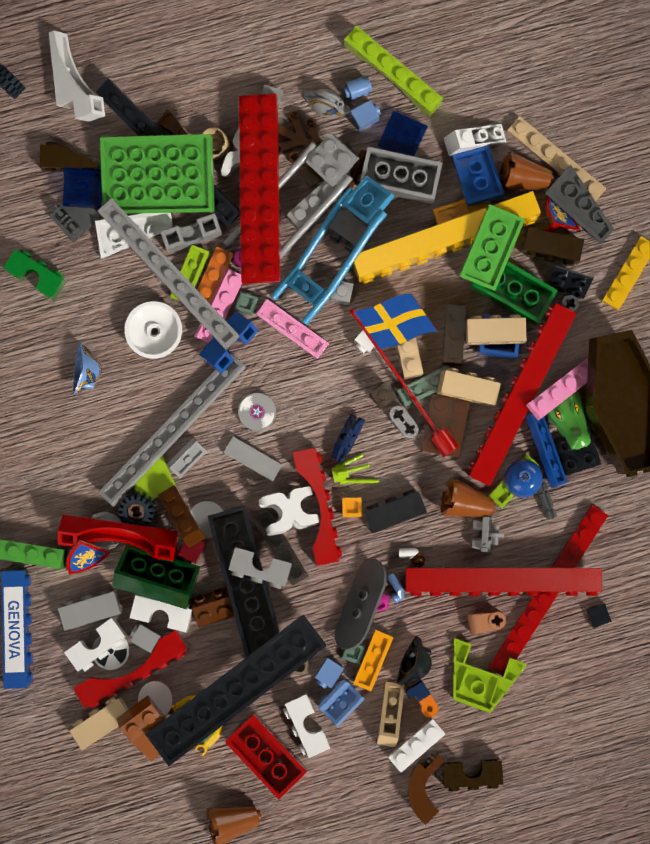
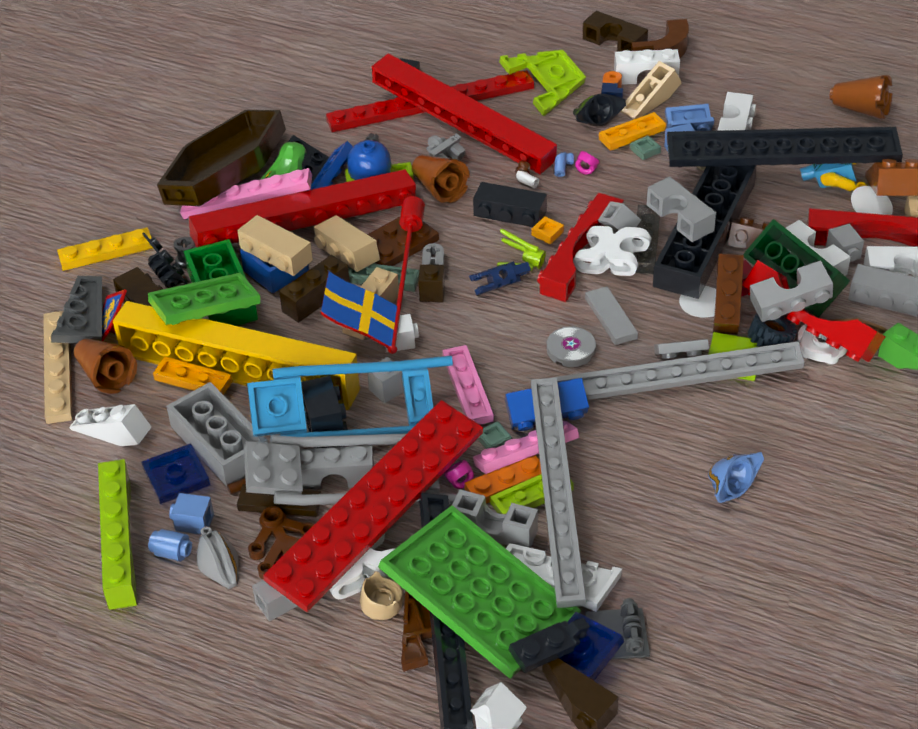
camera: 140 degrees left, 40 degrees down
(49, 282) = (725, 619): green arch -> none
(94, 166) = (548, 644): none -> black hinge
(140, 515) = (773, 301): none -> light grey arch
(146, 318) = (620, 459): white dish -> none
(266, 756) = (789, 105): red brick -> none
(303, 541) = (618, 216): none -> light grey brick
(361, 604) = (608, 160): dark grey piece -> none
(478, 176) = (148, 383): blue plate -> none
(482, 622) = (506, 103): nougat piece -> none

